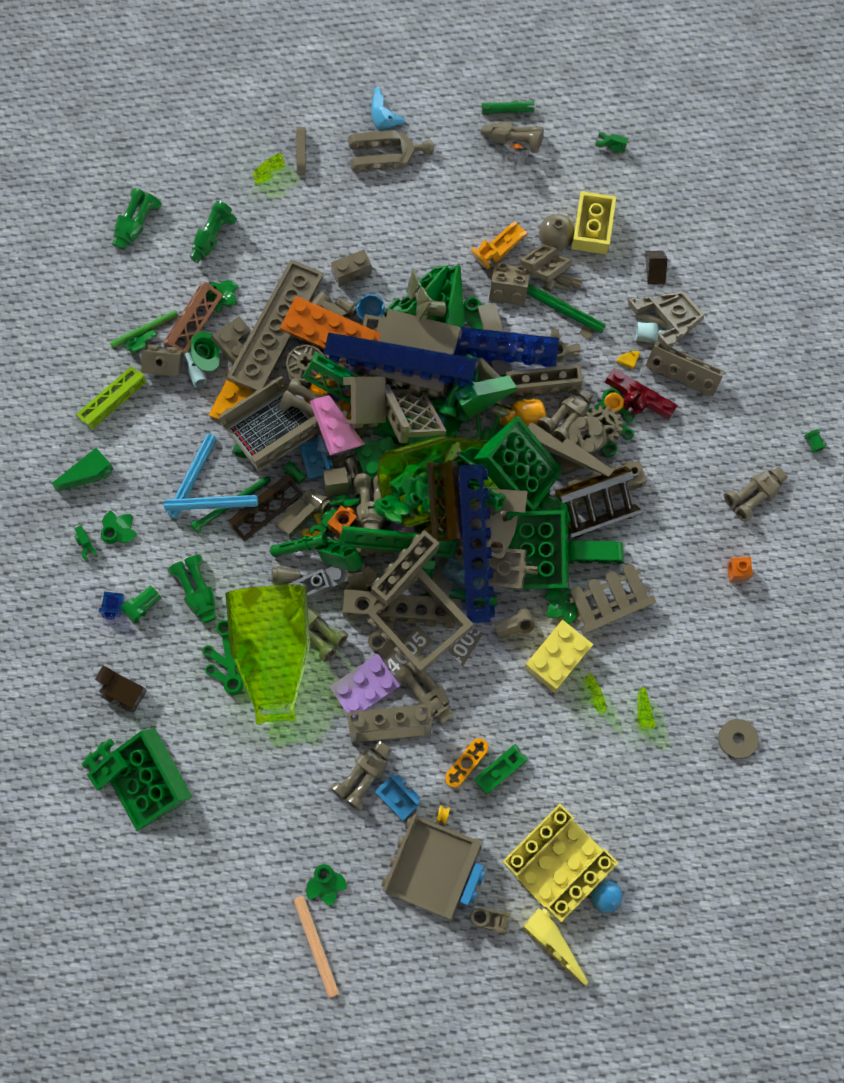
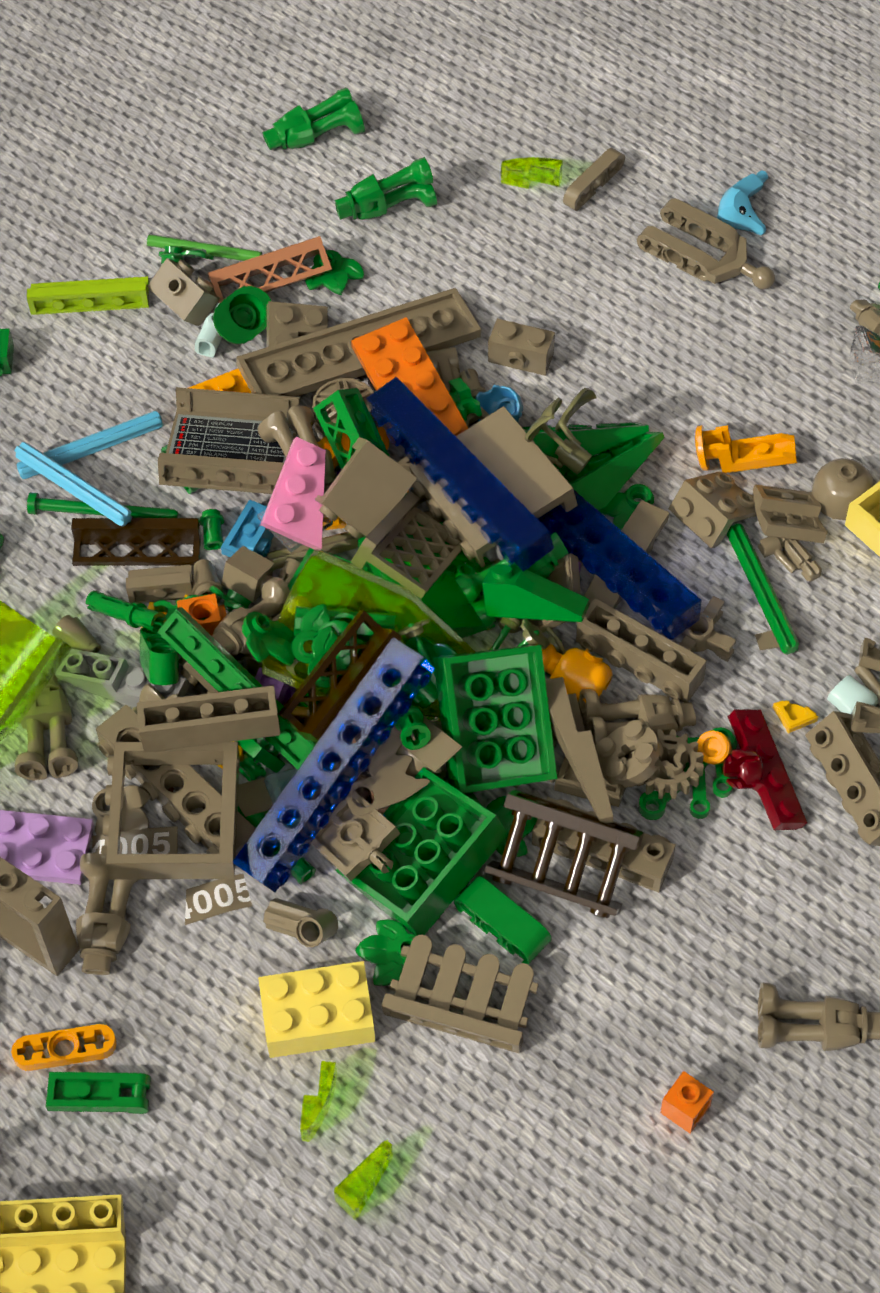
camera: 45 degrees right, 15 degrees down
(355, 316) = (463, 399): none -> green plate

